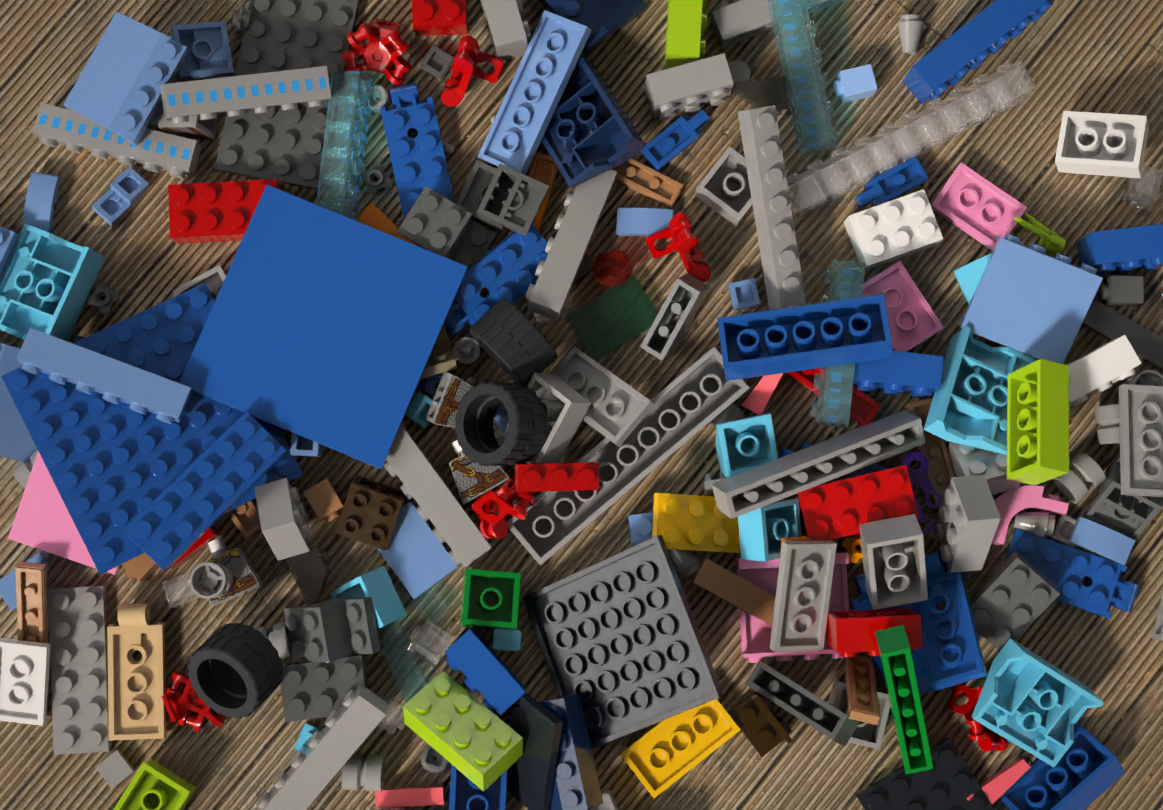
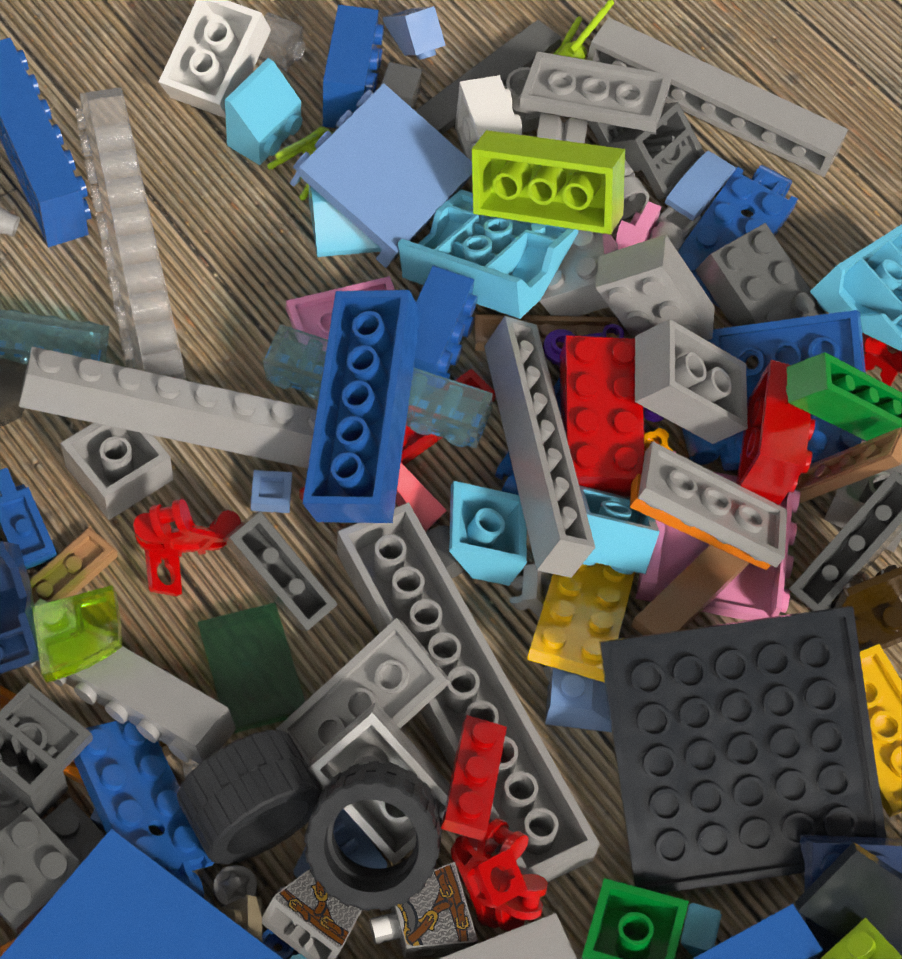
camera: 80 degrees left, 25 degrees down
(593, 203) = (77, 632): none -> clear neon green plate
(612, 268) = (179, 644): clear red hair -> none
(642, 221) = (130, 582): medium blue slope -> none
(855, 84) = (32, 287): light blue brick -> none
(893, 183) = (182, 286): blue hinge -> none
(893, 229) = (242, 297): white brick -> none
(977, 206) = (244, 206): bright pink plate -> none
(1061, 196) = (262, 113): none -> medium azure slope

